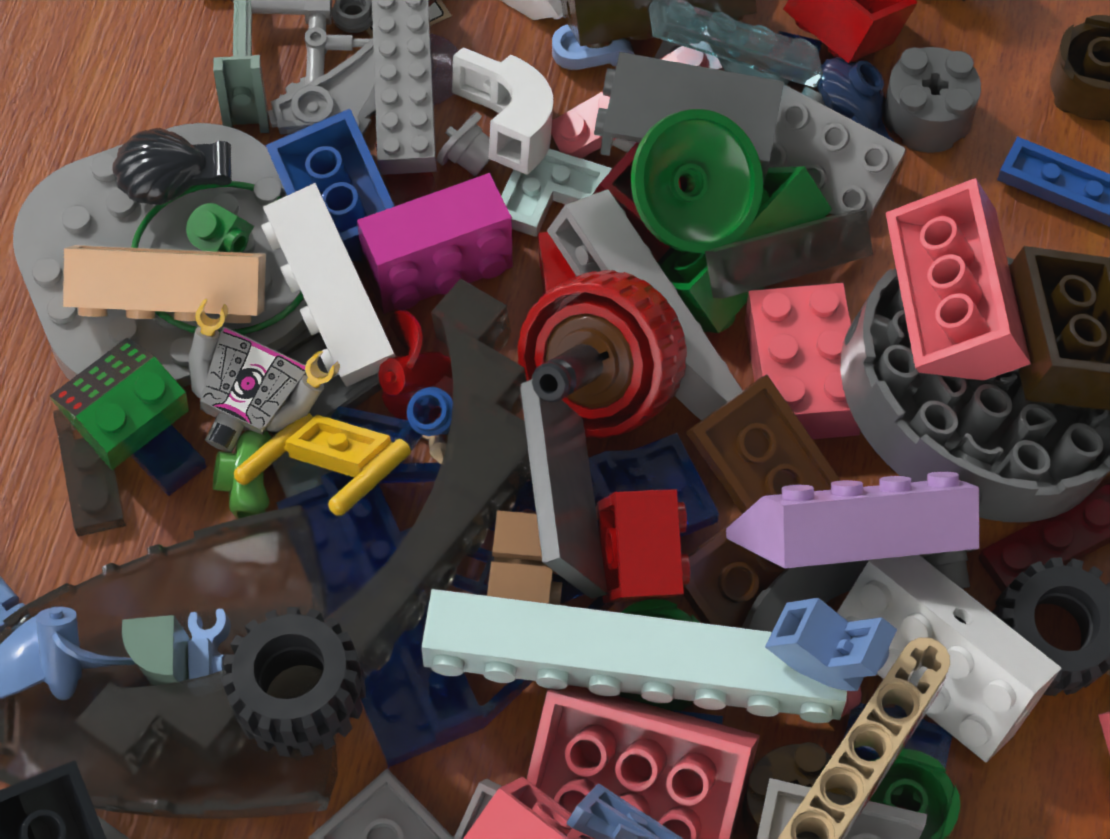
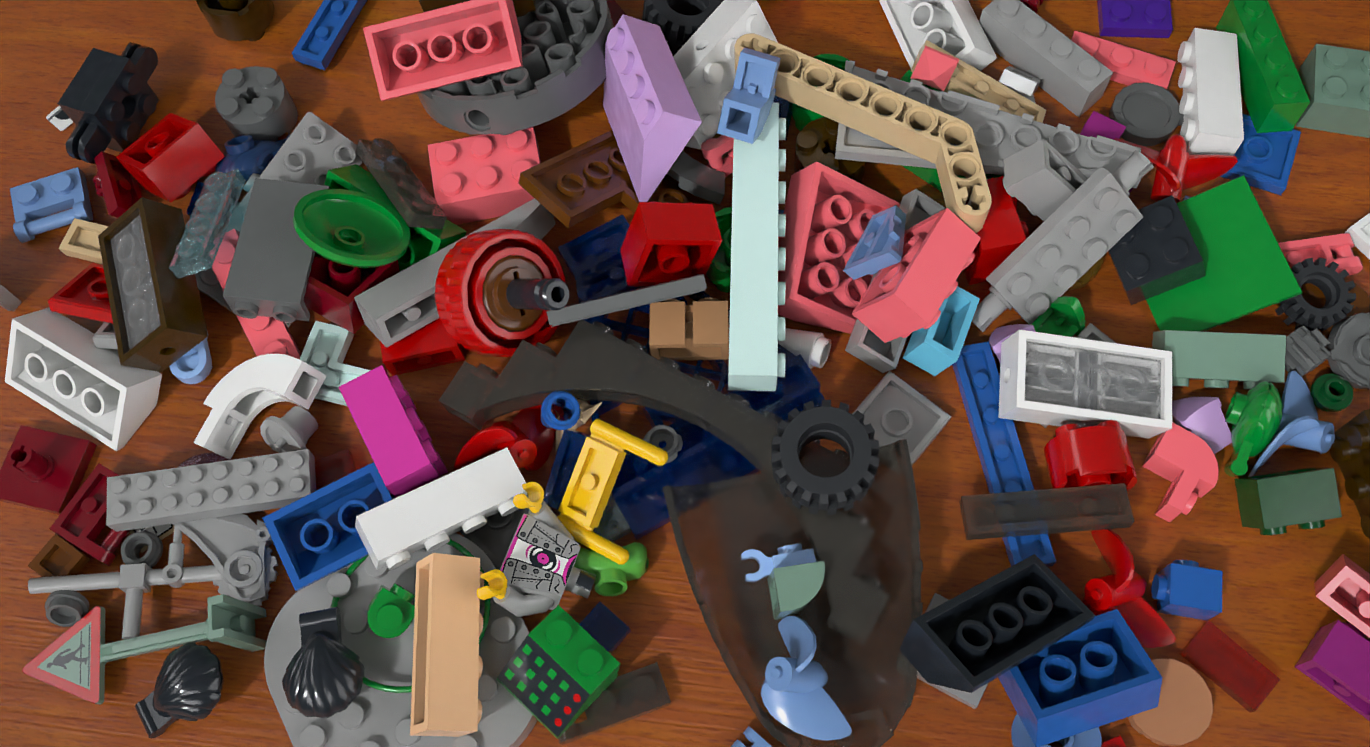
camera: 90 degrees left, 5 degrees up
(186, 54) = (184, 689): none -> black animal
(372, 516) = (668, 435): none -> dark grey plate
(506, 732) = (809, 344): none -> white cone

